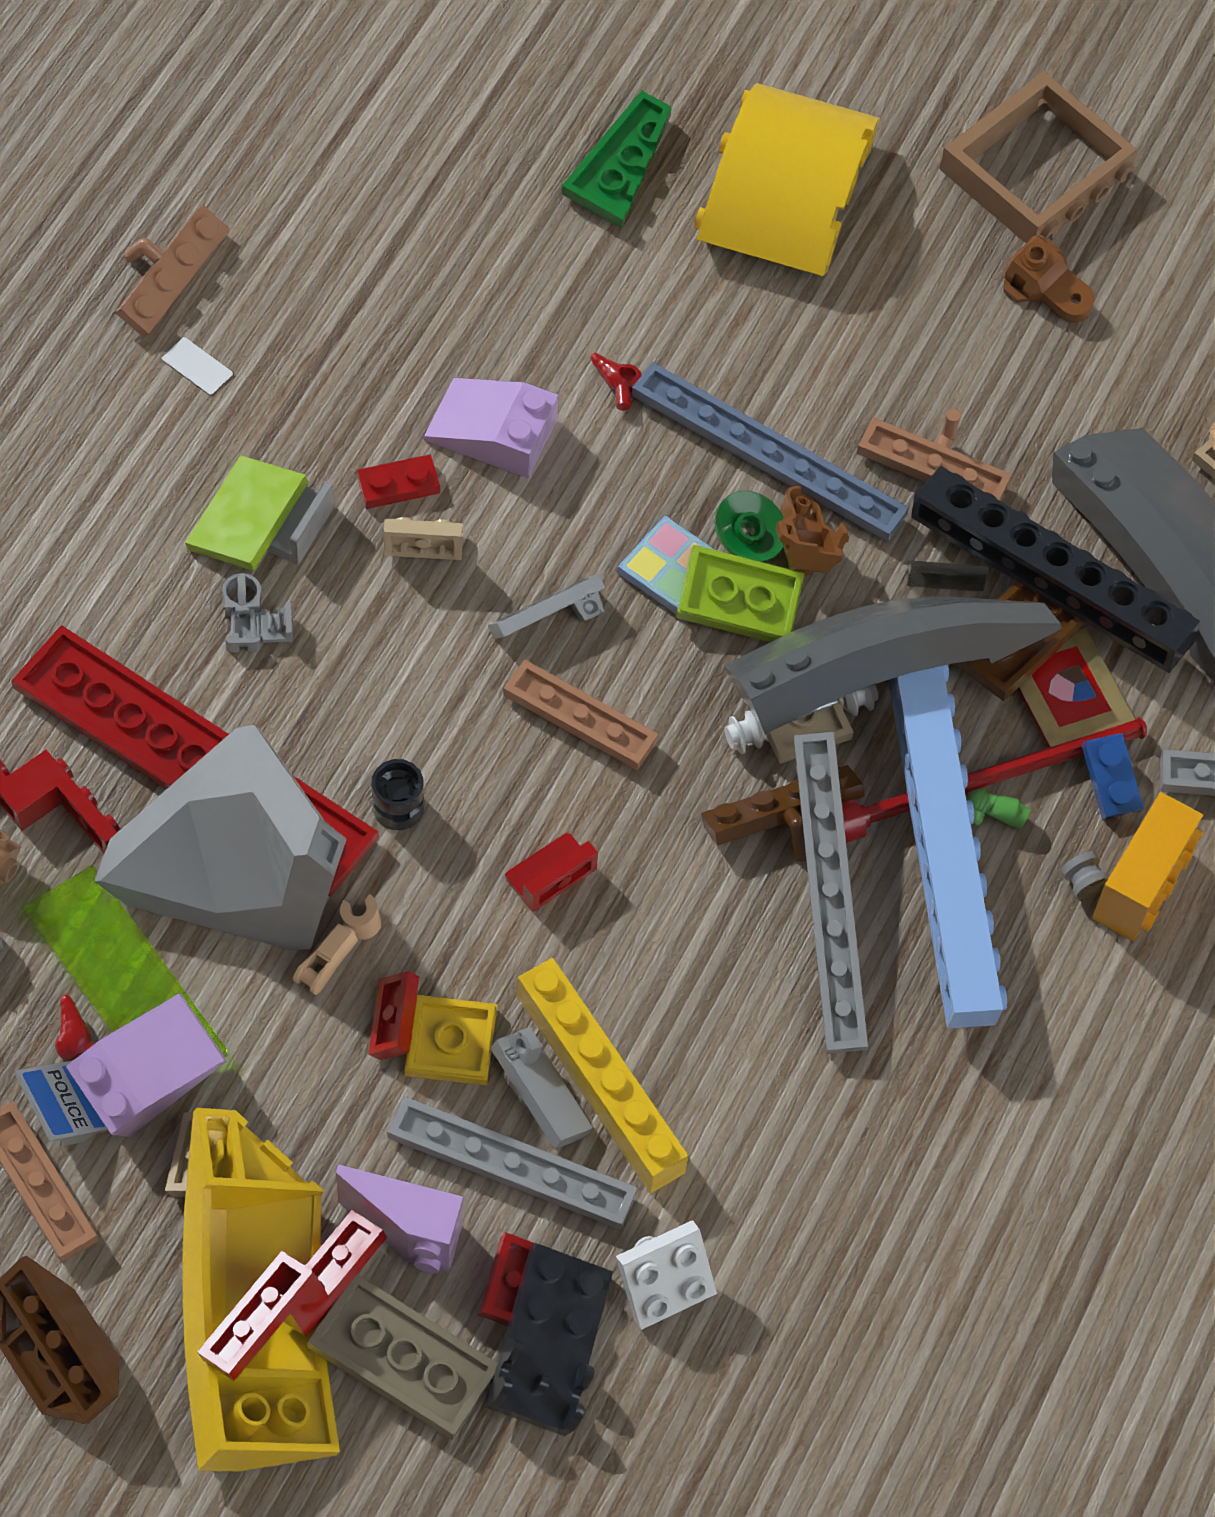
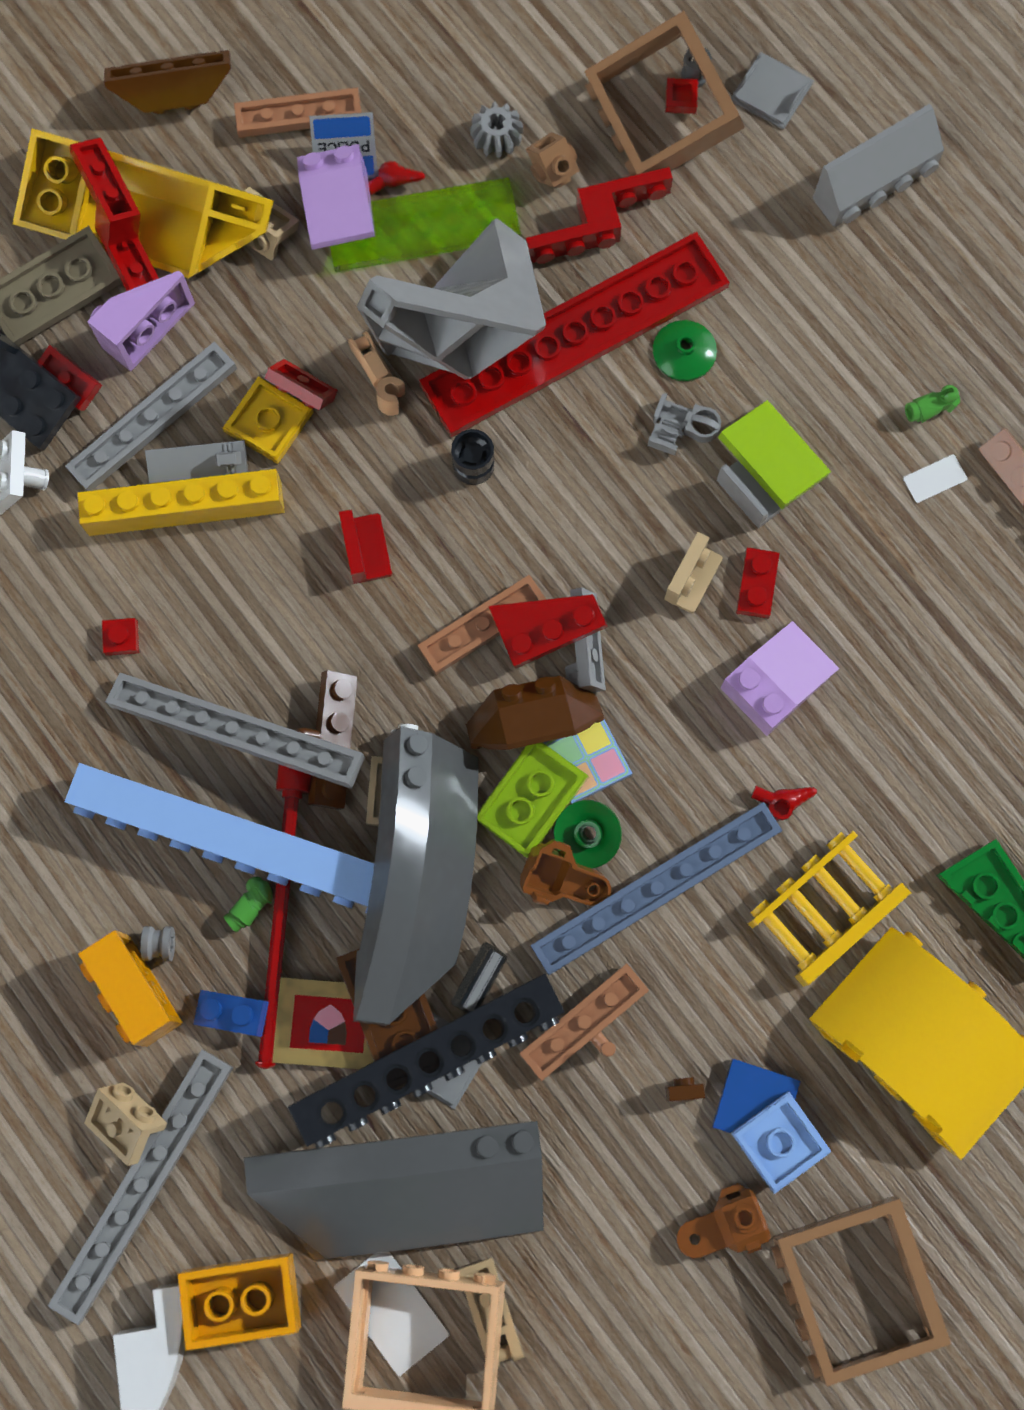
camera: 120 degrees right, 15 degrees up
(118, 388) = (932, 404): none -> bright green arm
(163, 663) = (684, 363): none -> green dish
(561, 642) = (546, 625): none -> red wing
(663, 618) = (533, 714): none -> reddish brown wedge
(716, 270) = (860, 918): none -> yellow fence
(784, 1076) = (120, 636): none -> red plate
(923, 299) = (748, 1092): none -> blue tile
(948, 261) = (780, 1142): none -> light blue tile
(949, 355) = (684, 1090): none -> reddish brown plate

